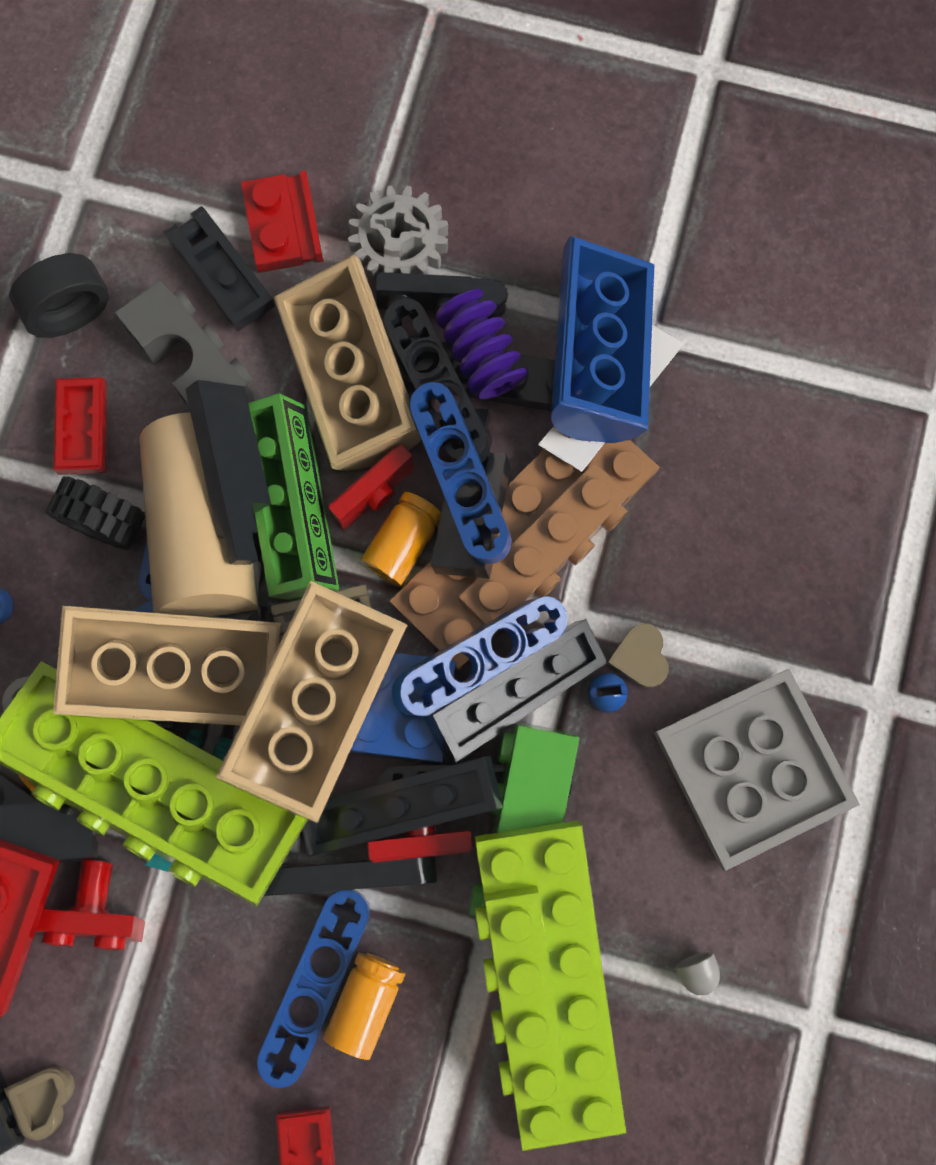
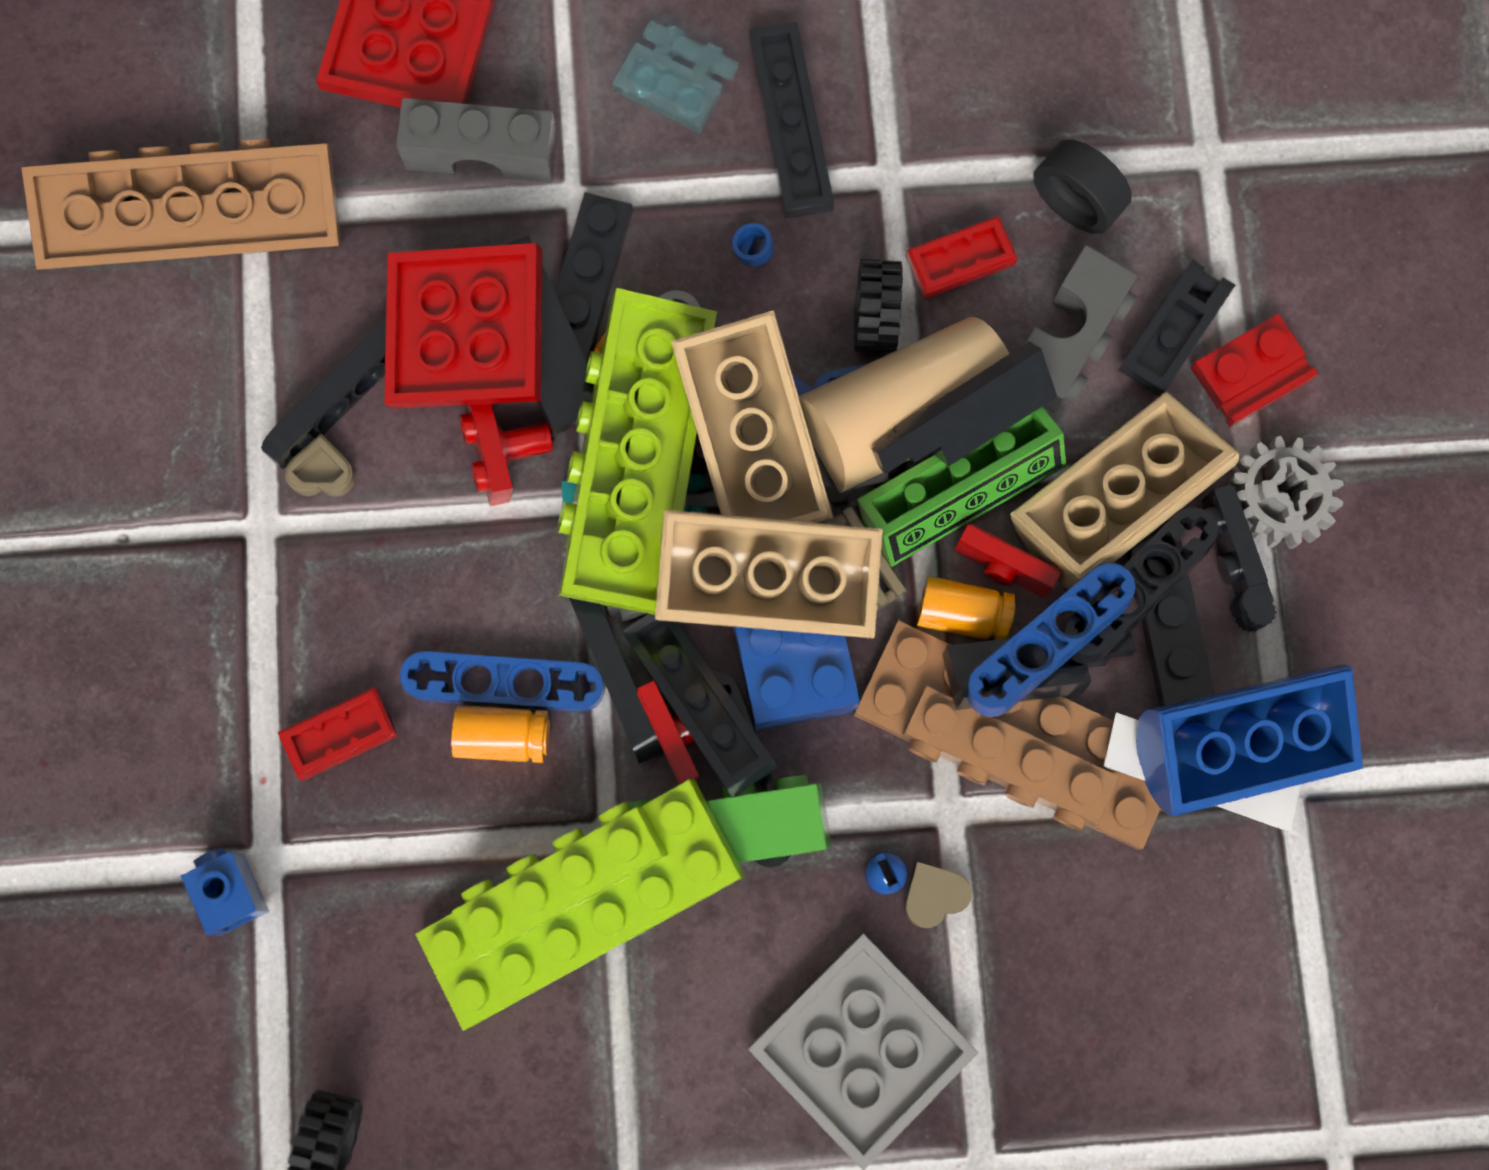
camera: 70 degrees right, 0 degrees up
(477, 345) = (1193, 613): dark purple piece -> none
(482, 657) = (878, 720): beam -> none
(515, 692) = (854, 775): plate -> none
(699, 973) = (637, 1056): light grey hinge -> none

